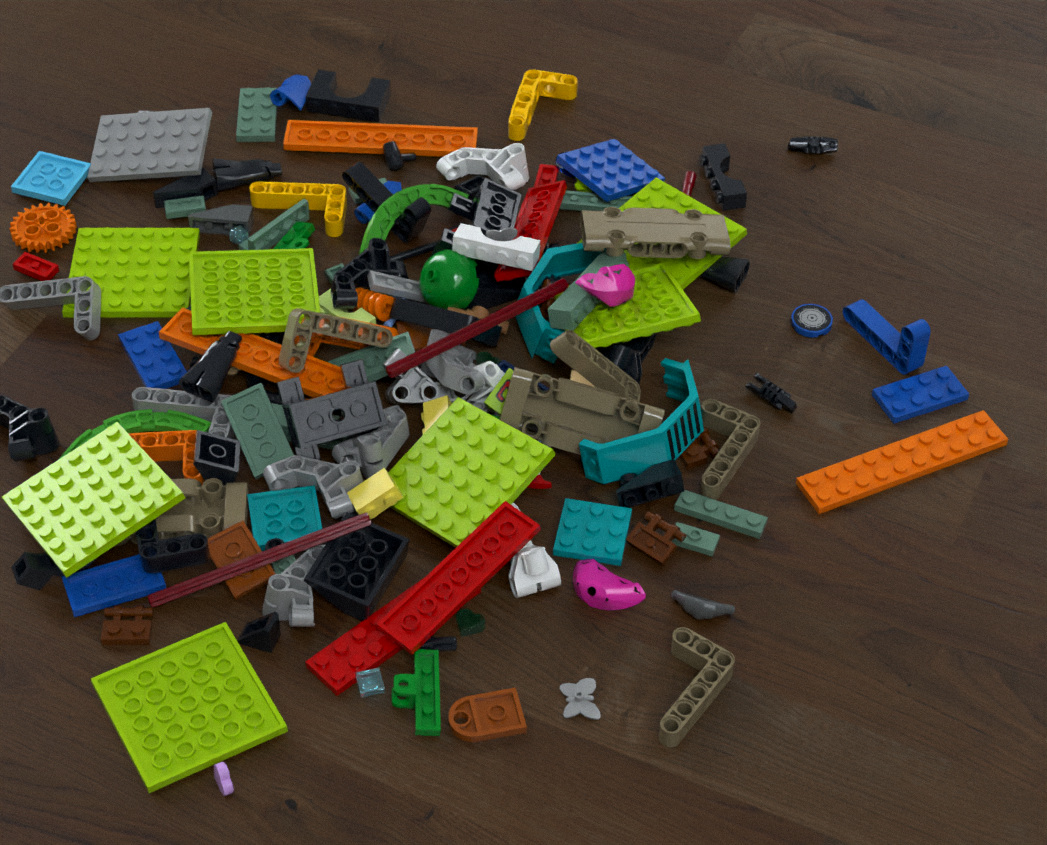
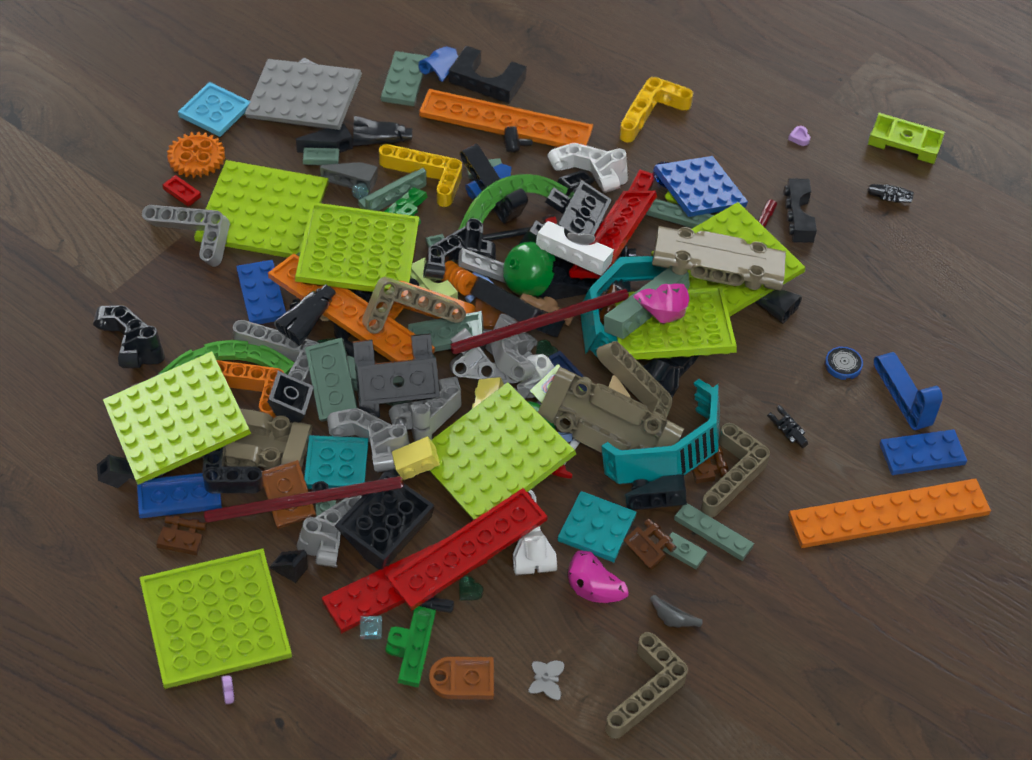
camera: 10 degrees right, 5 degrees up
(701, 105) = (799, 136): none -> lavender tile
(828, 88) = (922, 139): none -> lime piece

